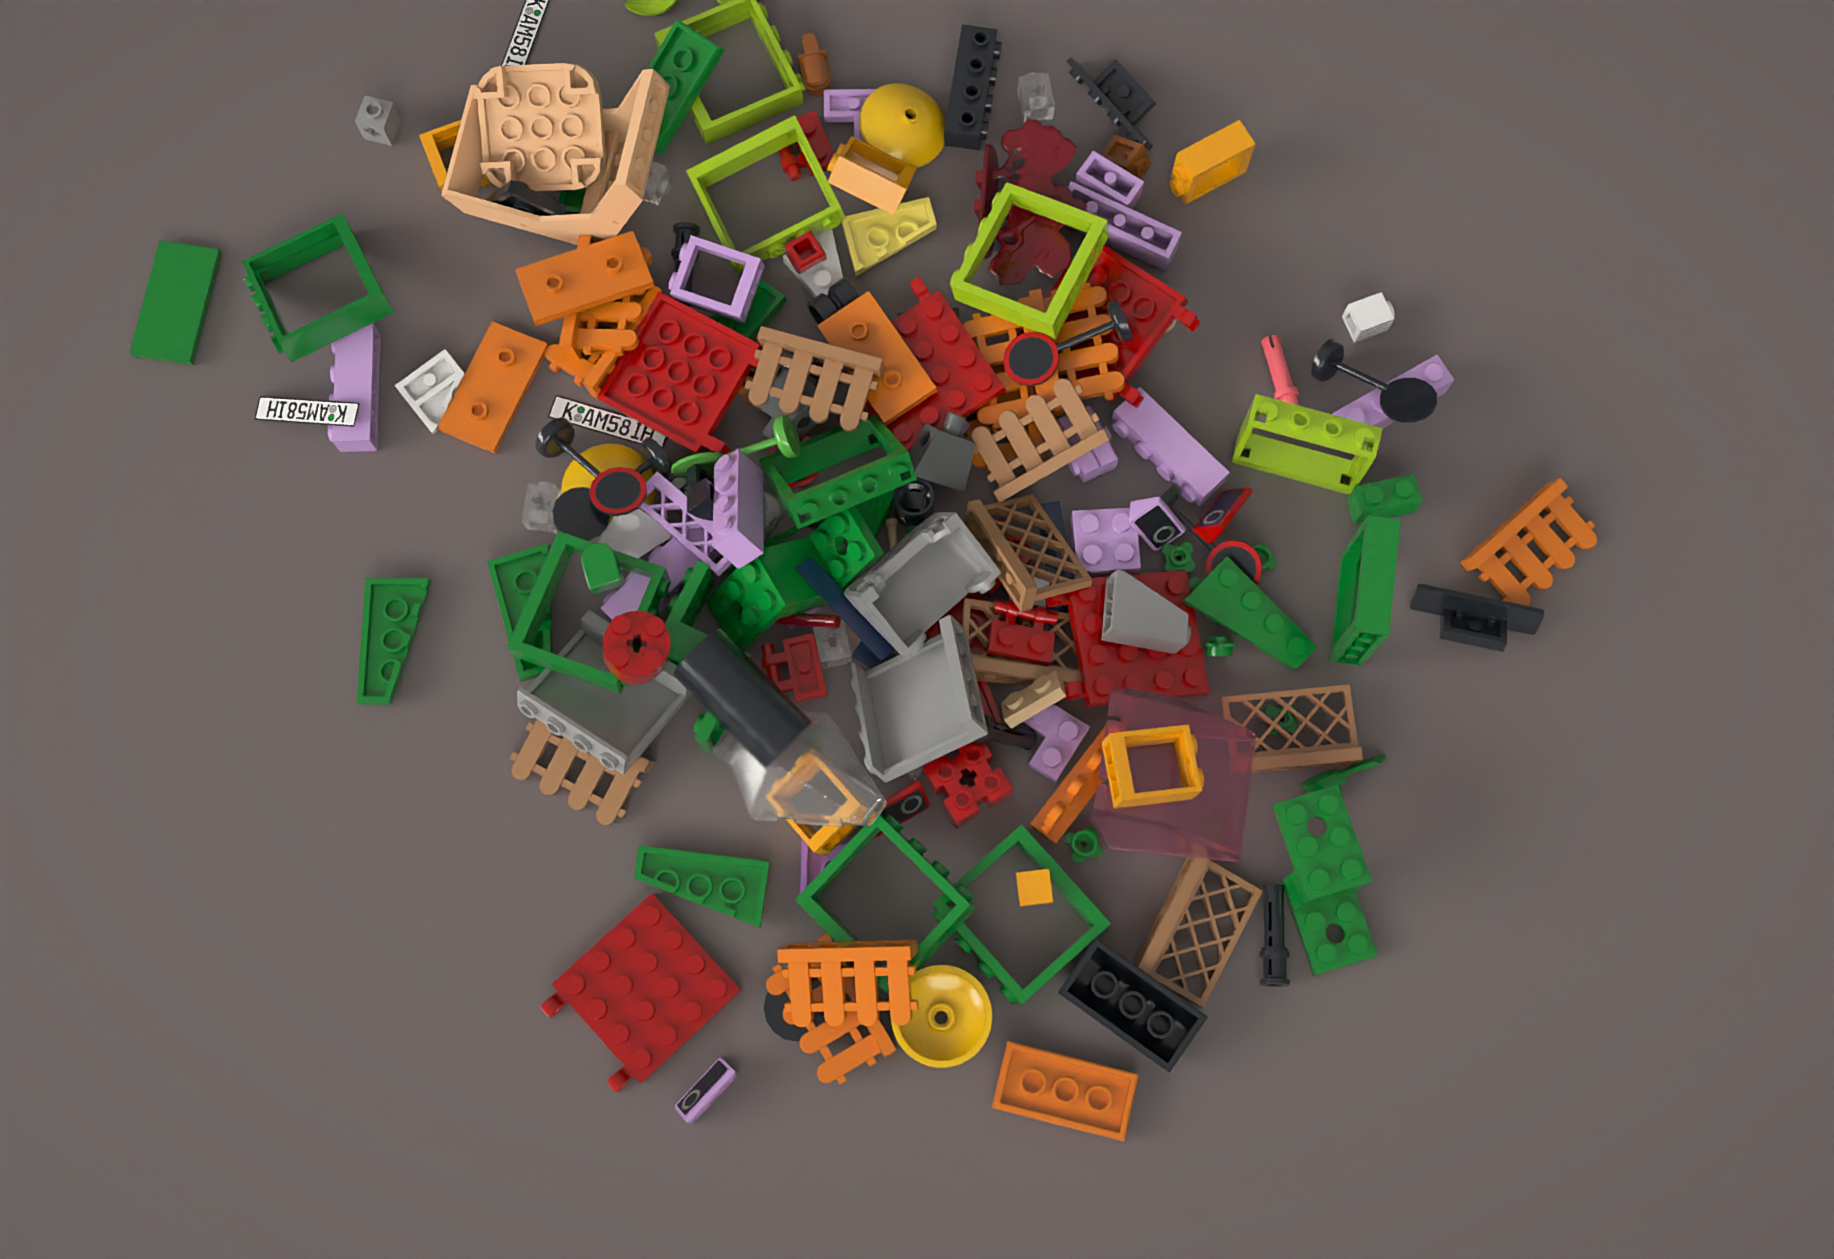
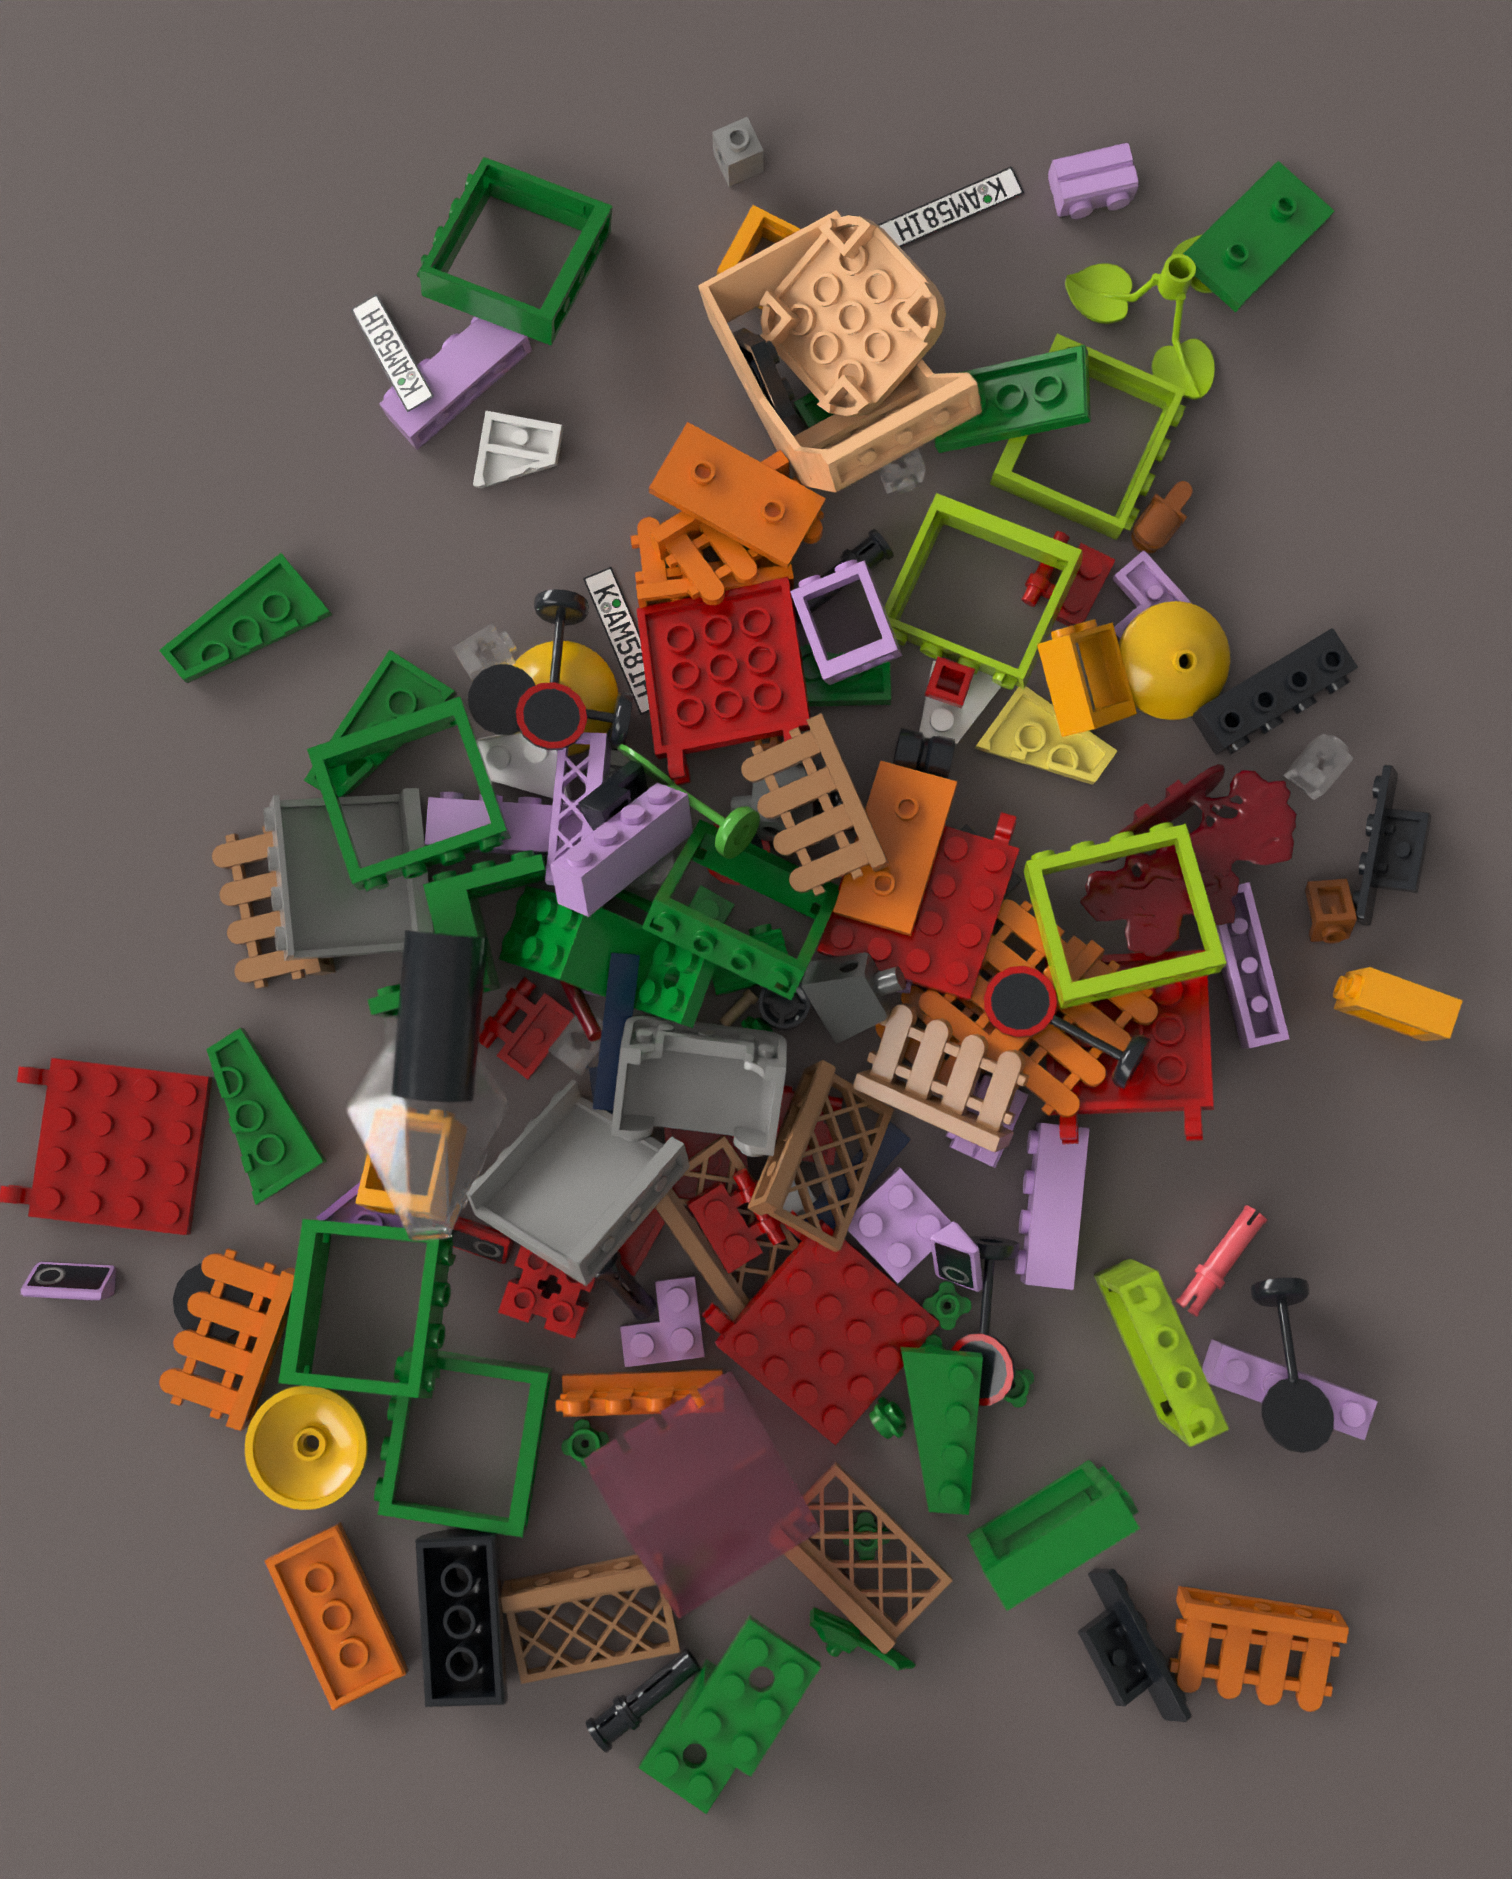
camera: 55 degrees right, 10 degrees up
(175, 303) = (399, 132): green tile -> none
(493, 387) = (567, 502): orange plate -> none
(601, 568) = (453, 771): green piece -> none
(618, 650) = (373, 872): red brick -> none
(834, 1002) = (283, 1324): orange fence -> none
(1033, 699) = (676, 1287): tan plate -> none
(1034, 887) = (495, 1437): light orange tile -> none
(1109, 180) = (1284, 918): lavender brick -> none
(1119, 770) = (637, 1458): light orange window -> none
(1141, 616) = (845, 1326): light grey slope -> none
(1221, 513) = (1026, 1313): slope -> none
(1368, 317) = (1365, 1294): white brick -> none
(1388, 497) = (1178, 1463): green brick -> none

